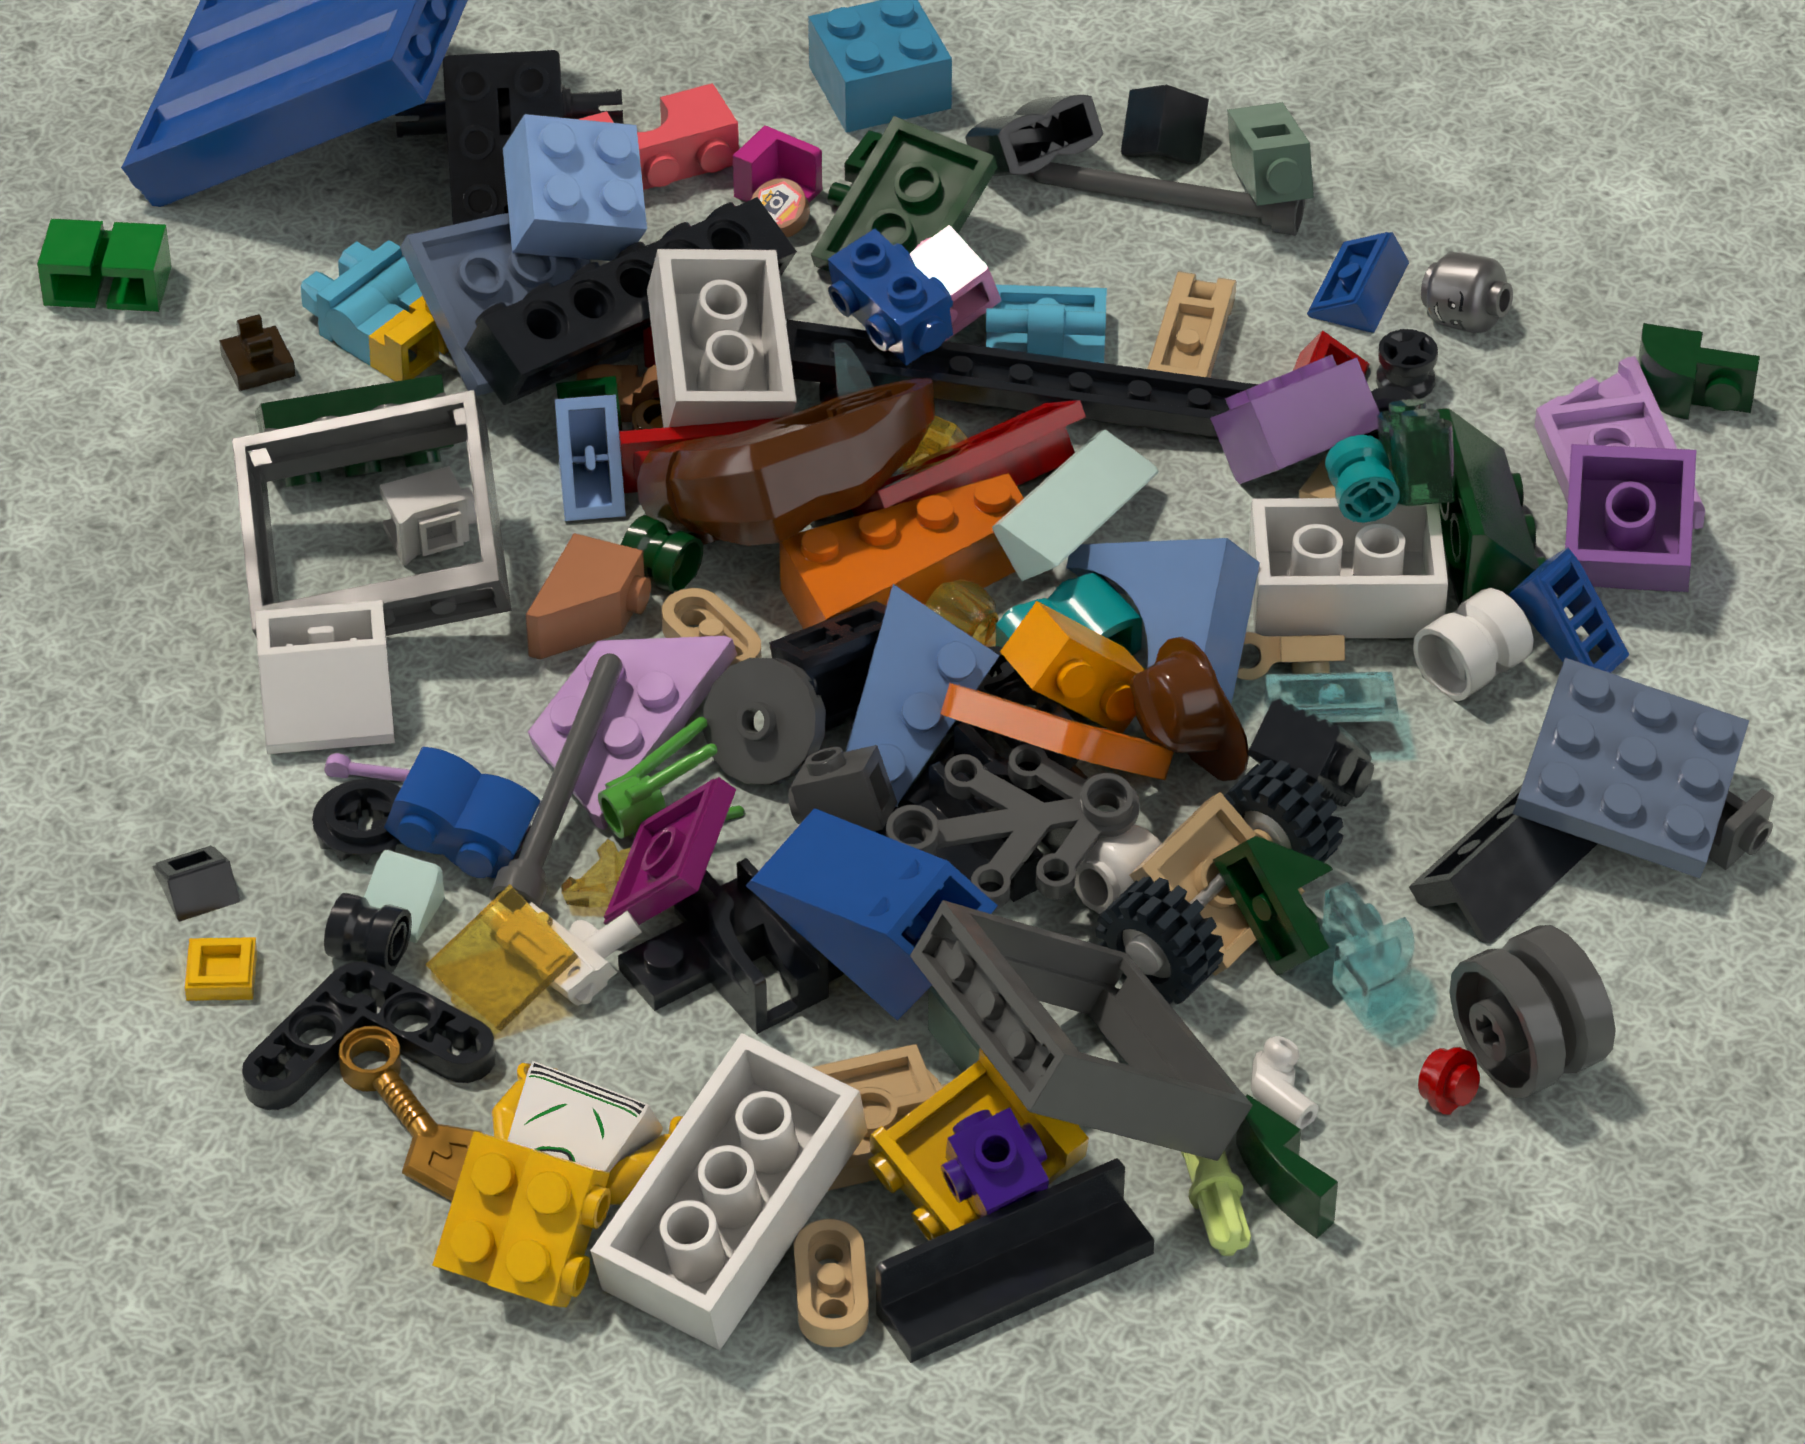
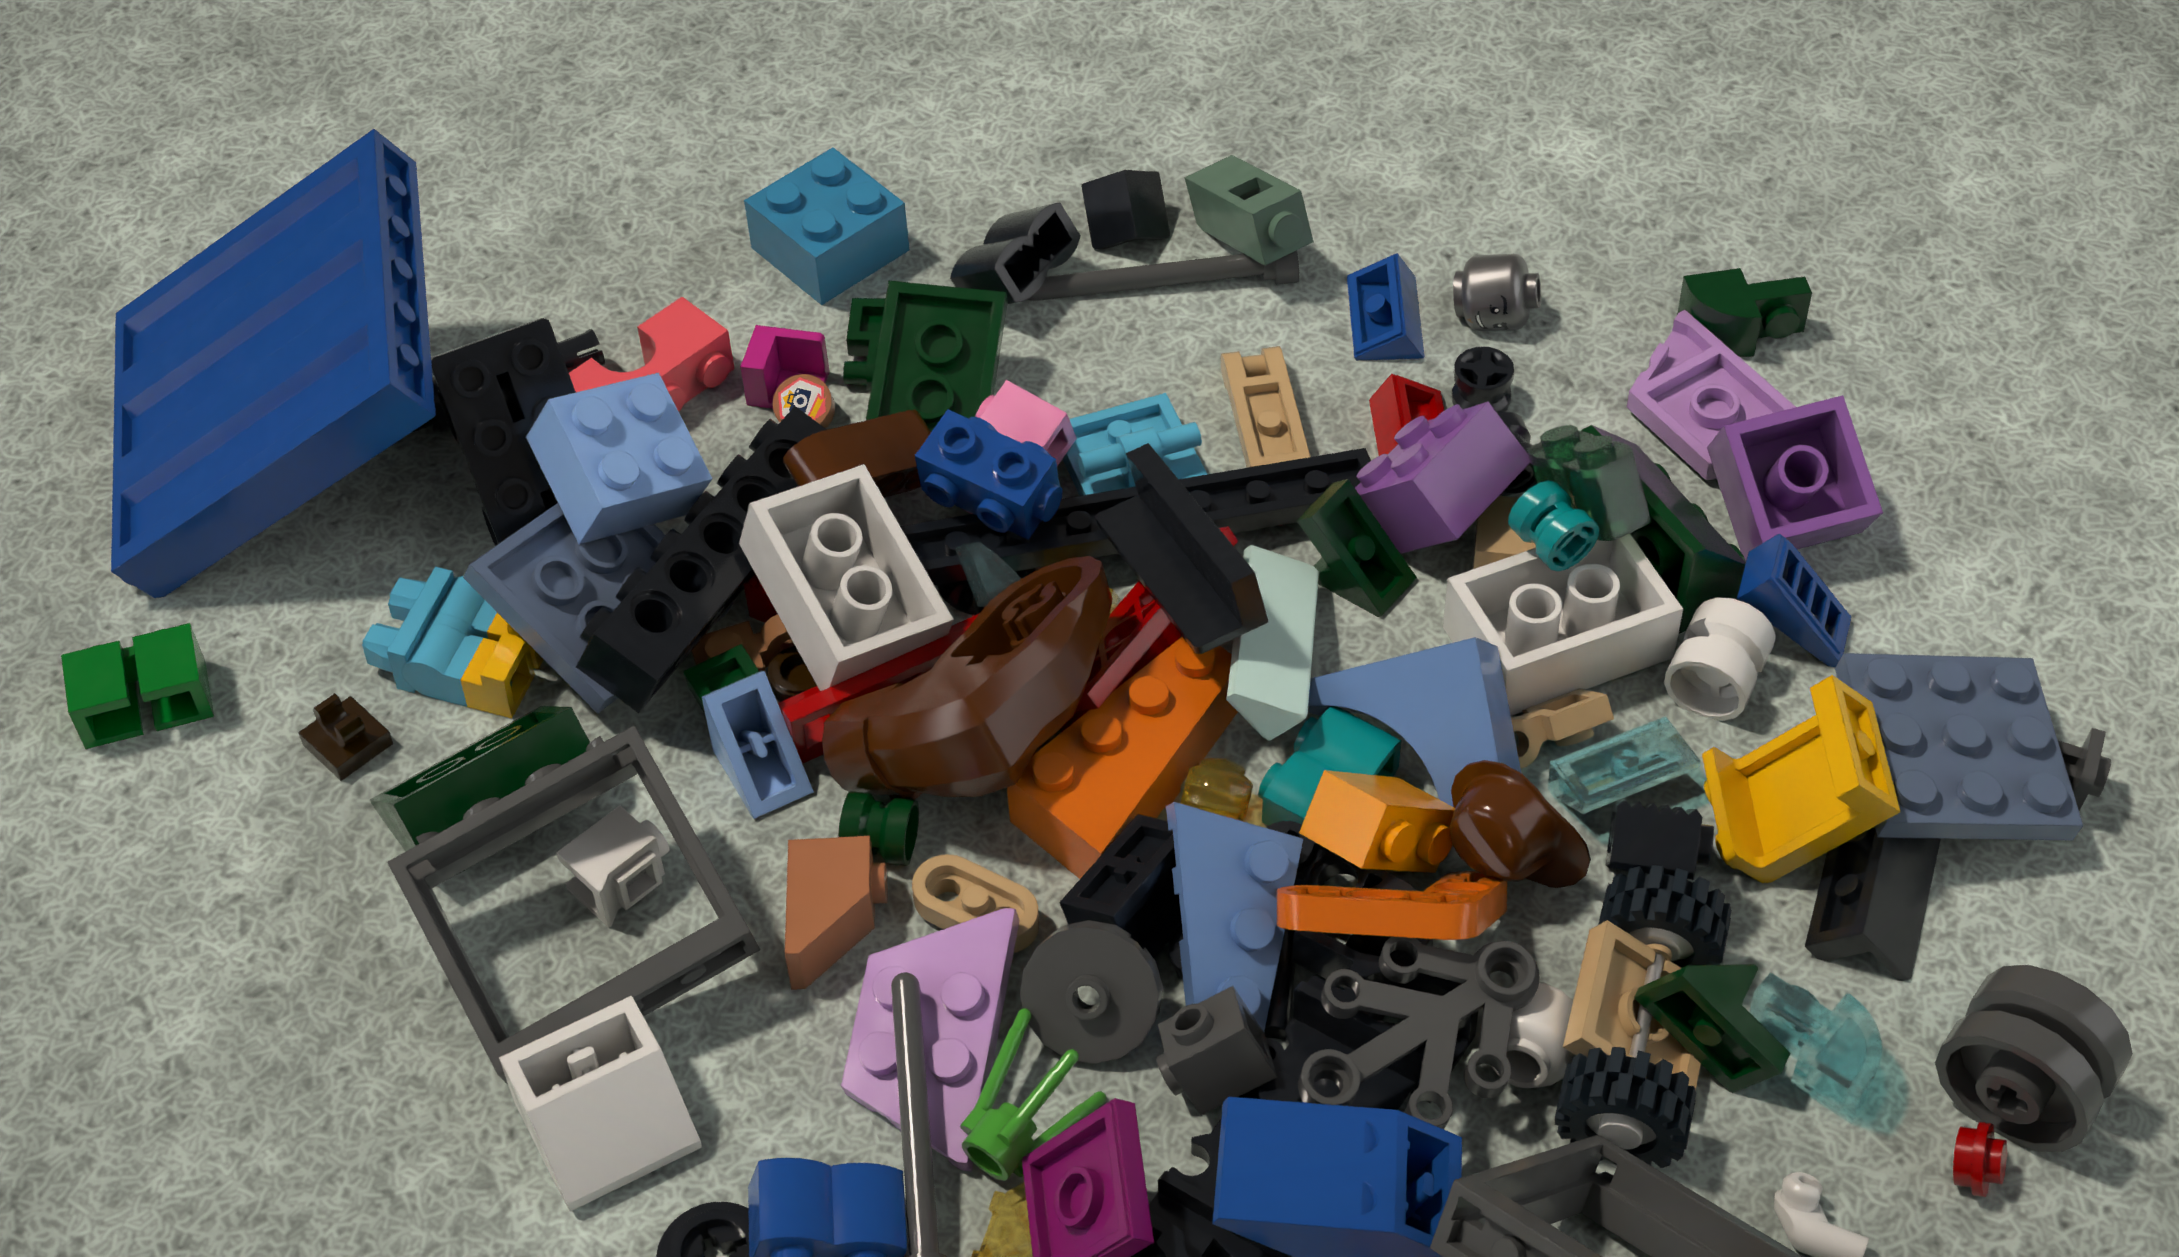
camera: 20 degrees left, 5 degrees up
(341, 766) = (660, 1197): lavender hinge -> none
(800, 250) = (882, 444): none -> reddish brown beam
(1016, 410) = (1183, 557): none -> black panel
(1199, 462) = (1355, 550): none -> dark green slope
(1459, 768) = (1802, 787): none -> yellow panel

